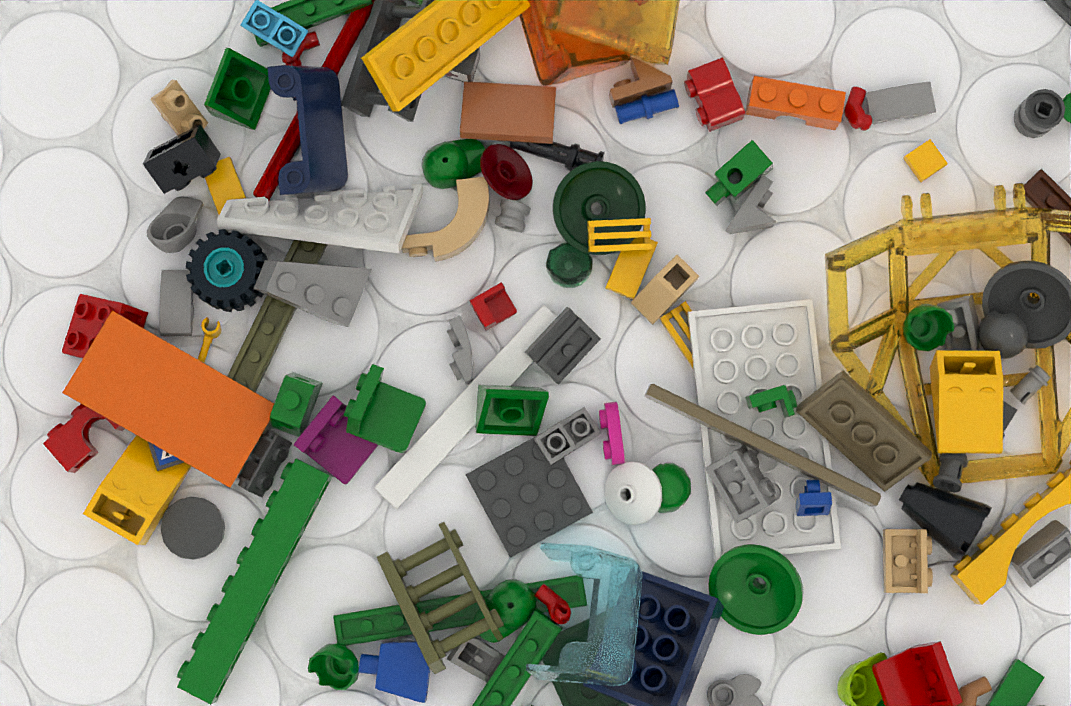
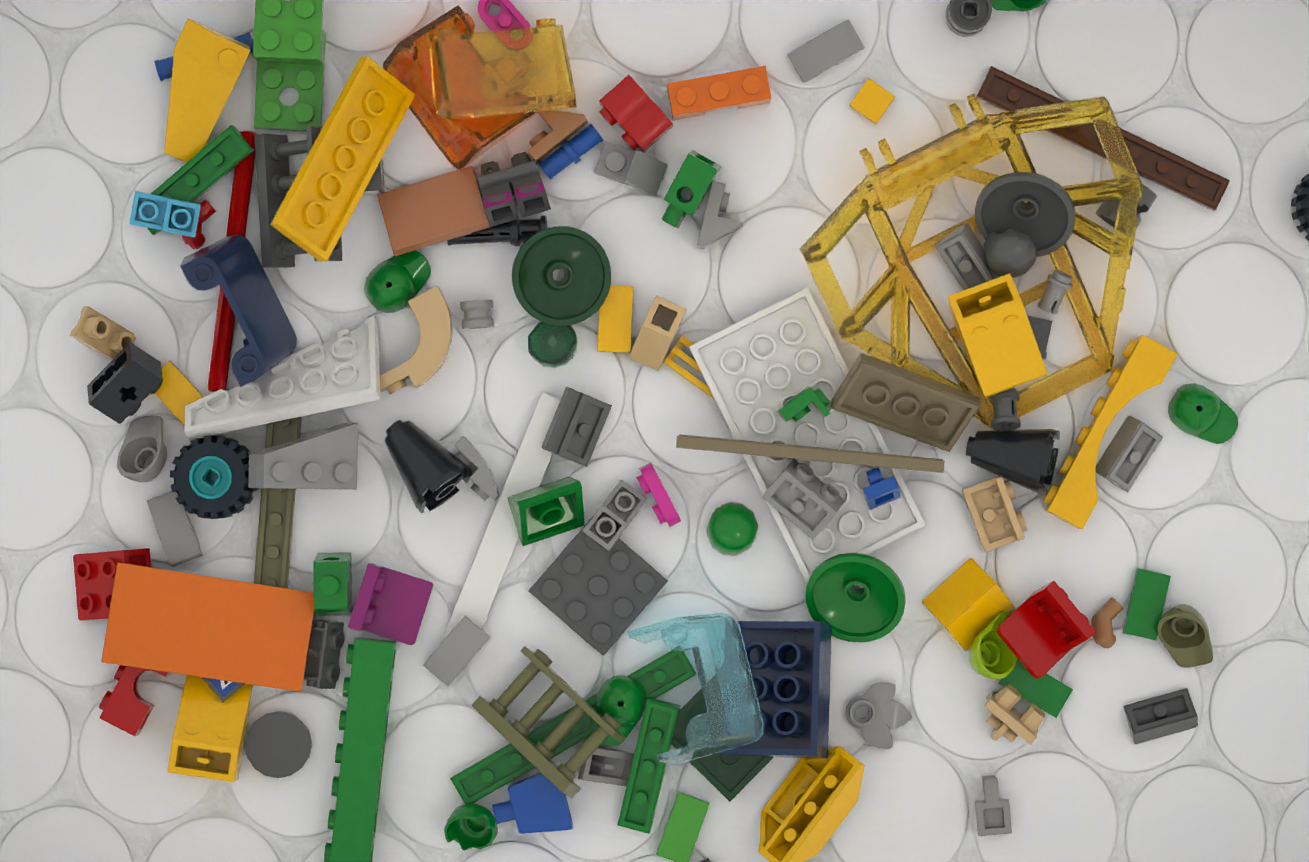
camera: 20 degrees left, 5 degrees up
(208, 337) = (219, 552): yellow hand -> none
(238, 90) = (154, 289): green slope -> none
(382, 503) = (456, 650): none -> light grey slope
(383, 412) = (424, 560): green bracket -> none
(416, 330) = (425, 465): none -> black cone
(493, 306) = (493, 413): red panel -> none
(506, 172) = (454, 273): dark red dish -> none
(557, 606) = (666, 686): red arm -> none
(593, 113) = (501, 185): none -> dark grey hips
(644, 489) = (709, 539): white dish -> none
(646, 234) = (617, 285): yellow tile -> none
(693, 140) = (630, 168): none -> light grey slope
(852, 632) = (967, 603): none -> yellow slope
(854, 111) = (782, 78): red arm -> none
(927, 327) = (931, 274): green hair -> none

